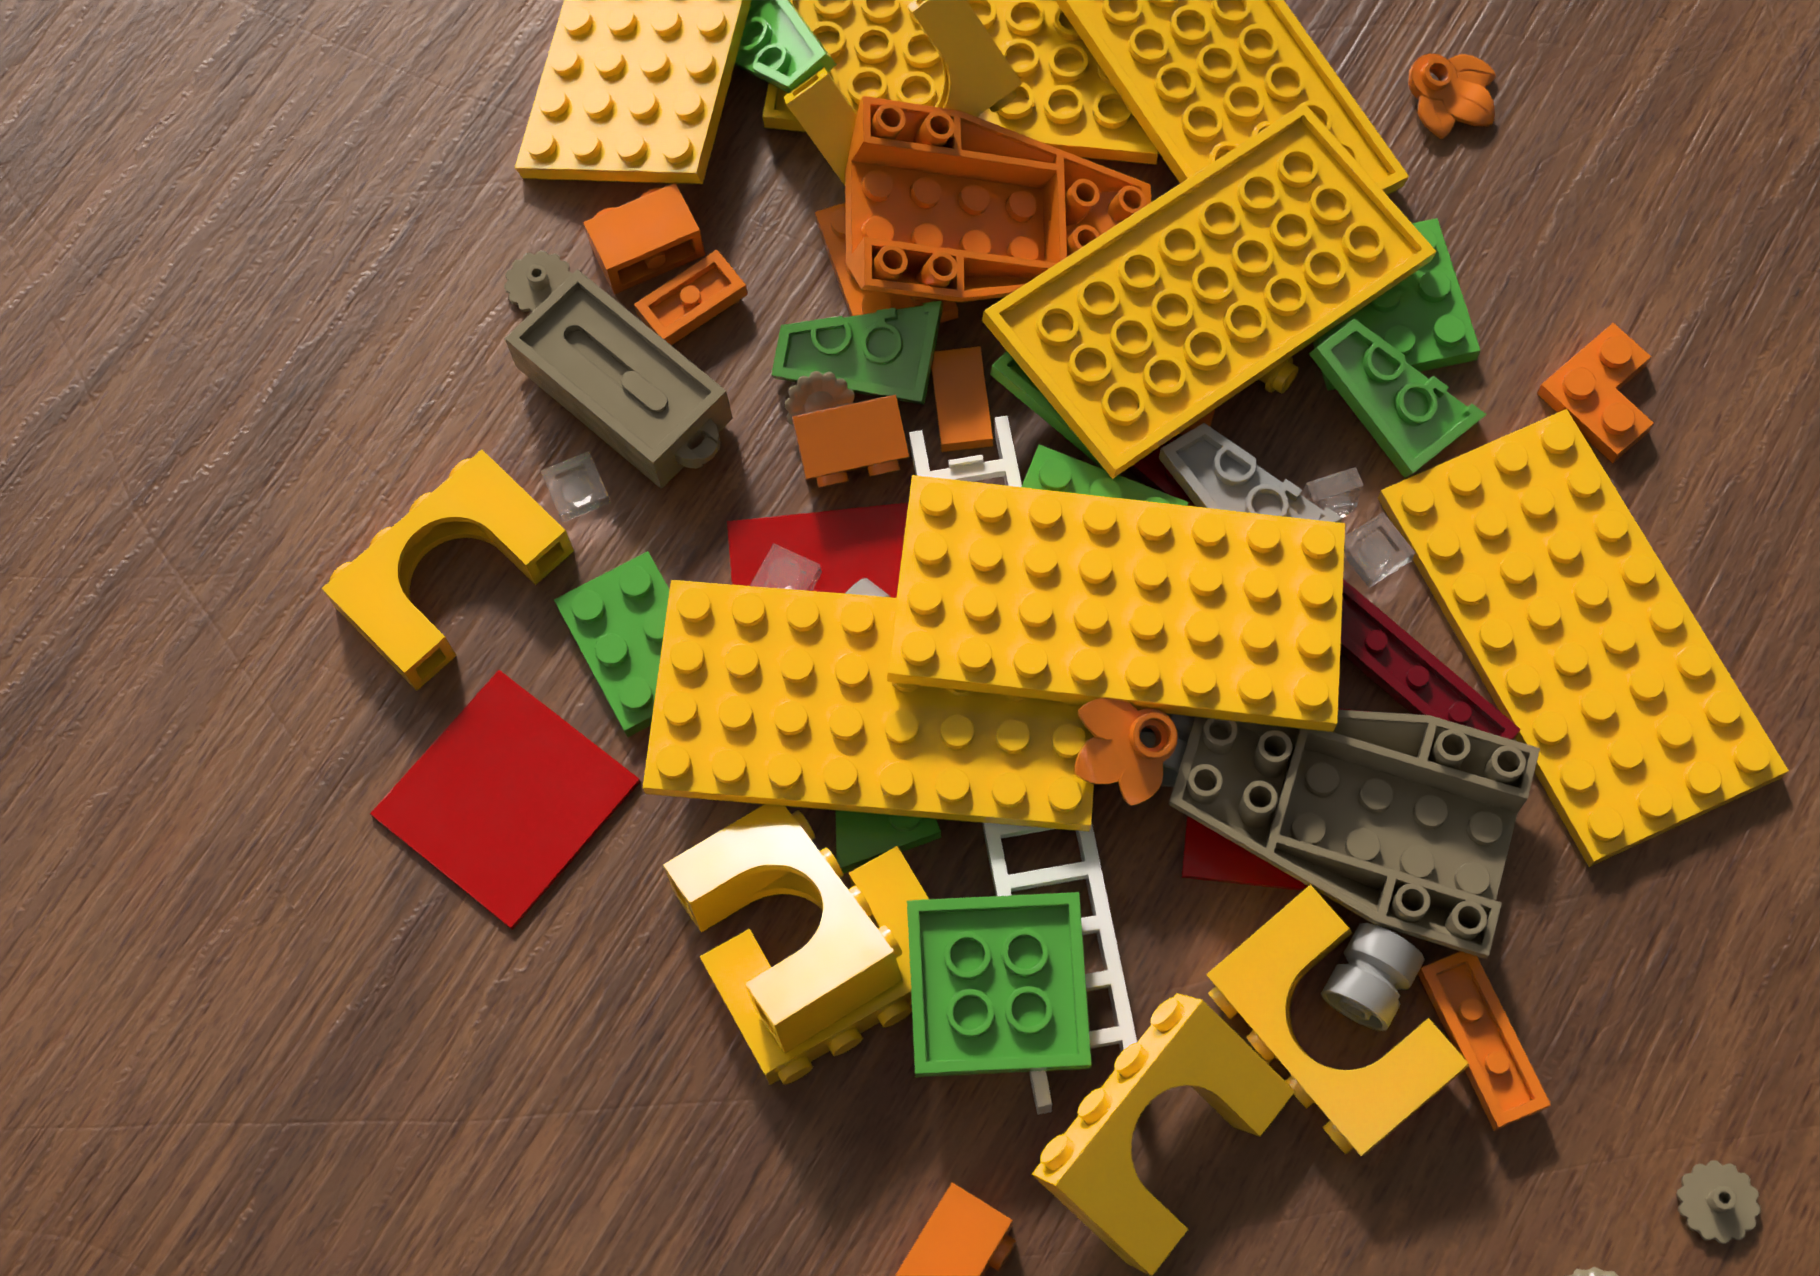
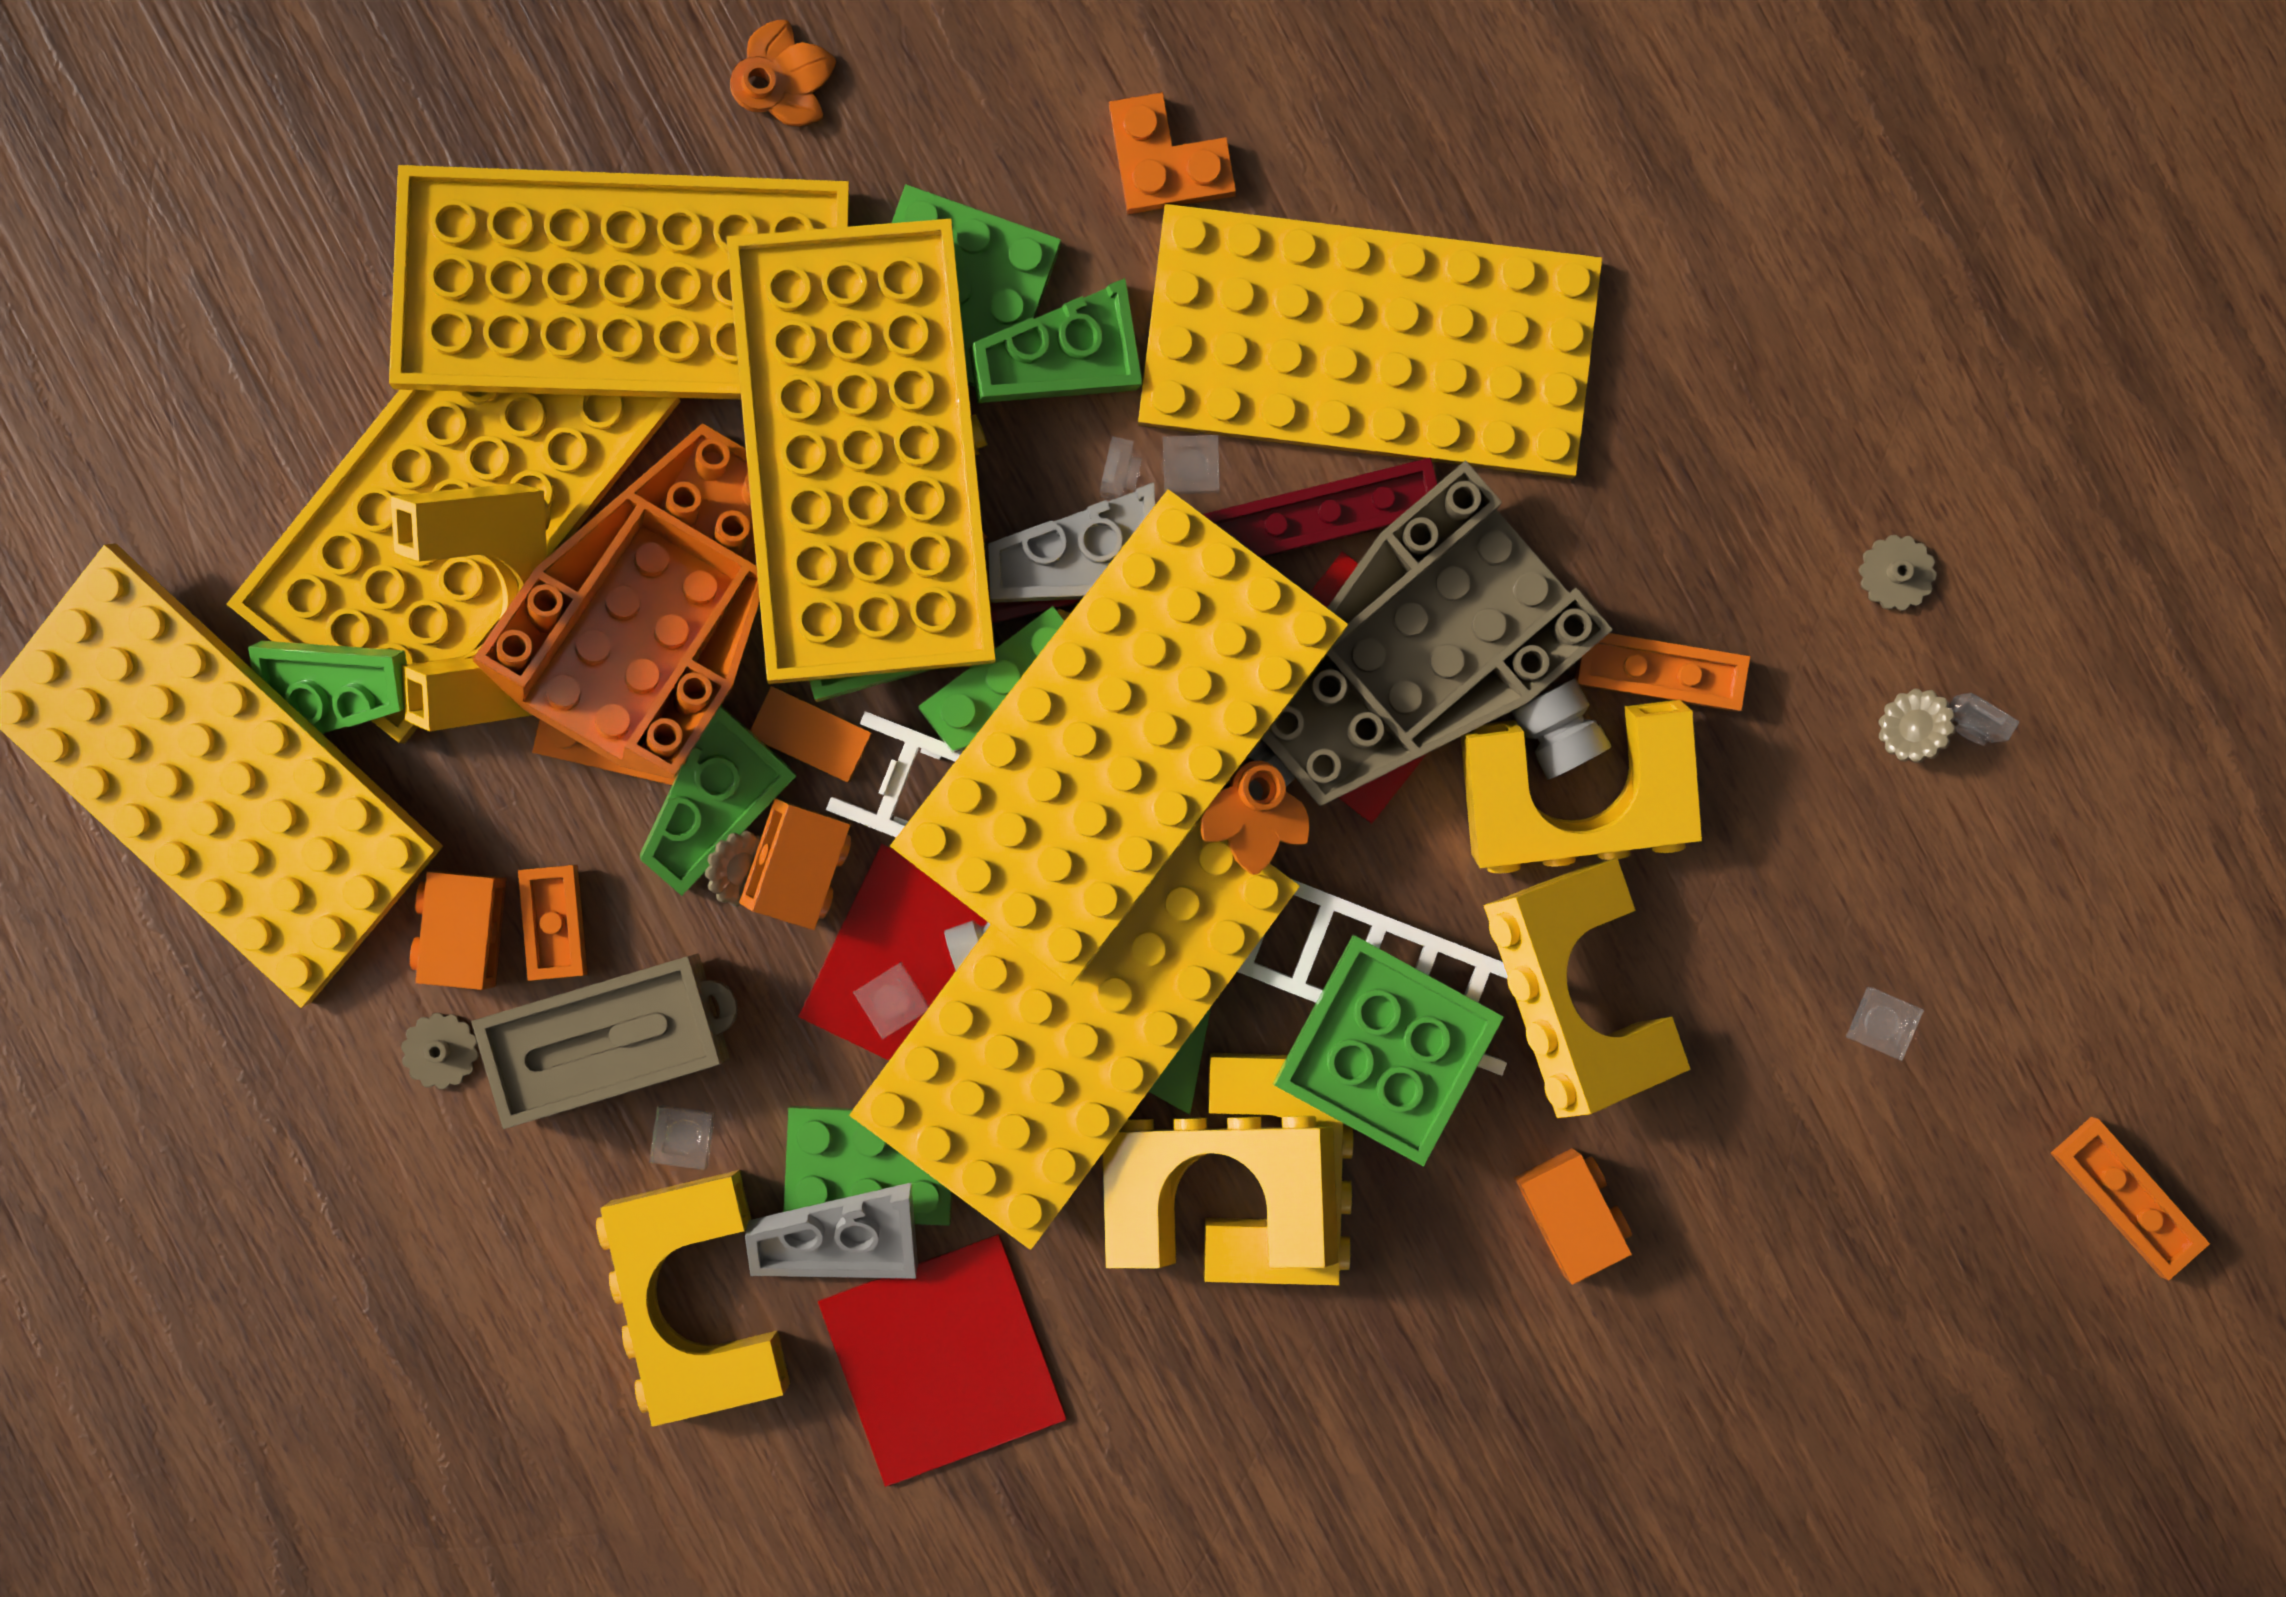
camera: 70 degrees left, 20 degrees up
(563, 648) = (838, 1238): none -> light grey wing

